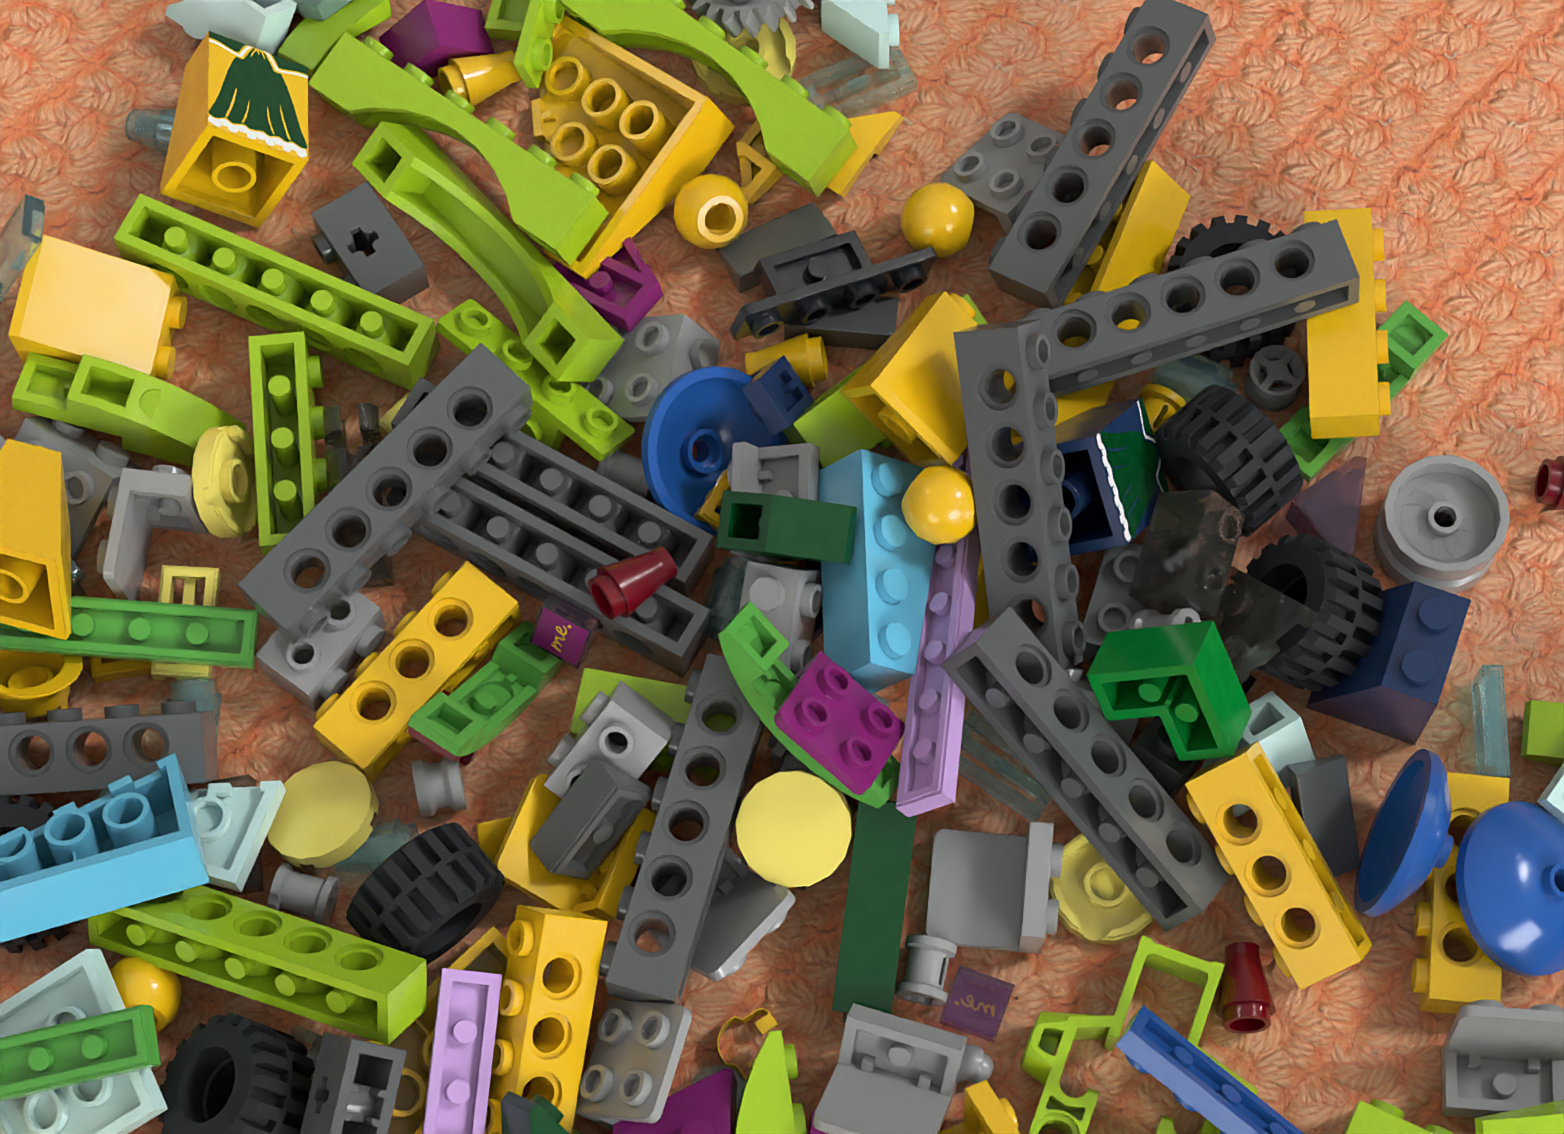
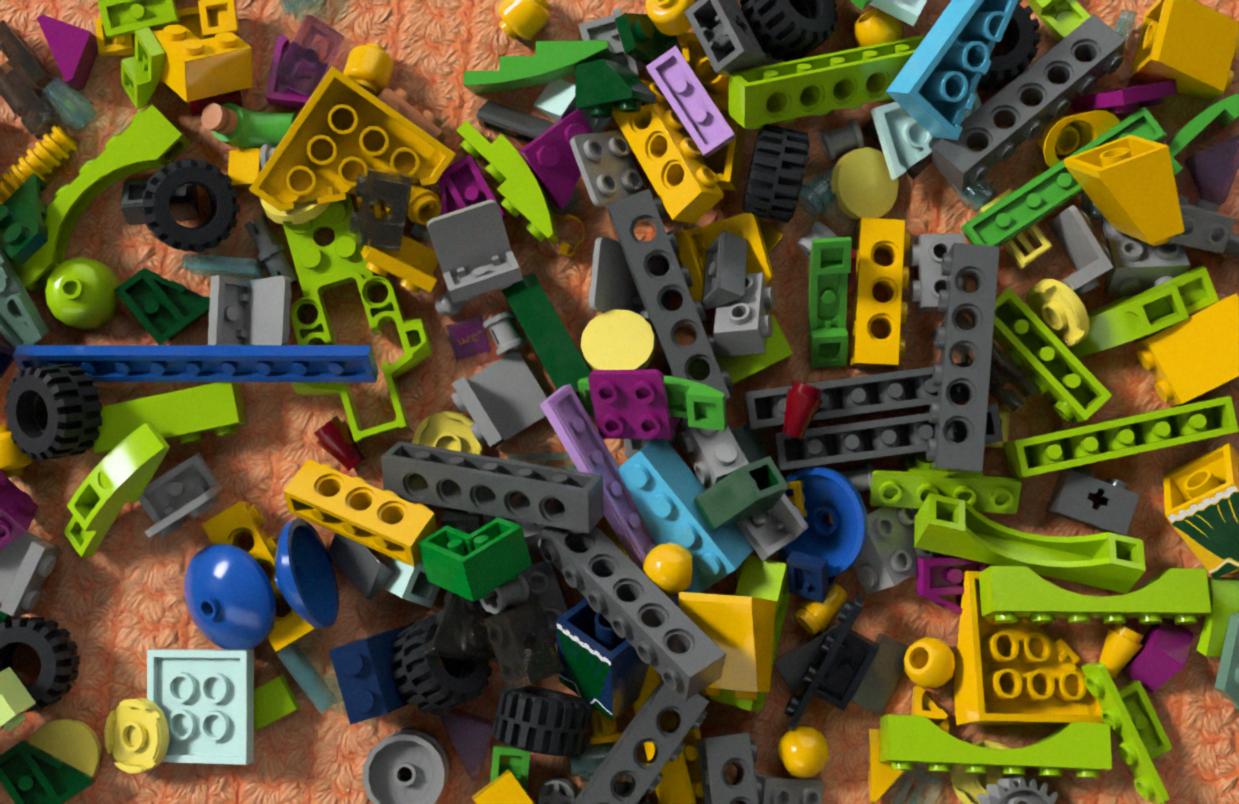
camera: 145 degrees right, 15 degrees up
(564, 630) = (819, 368): tile -> none

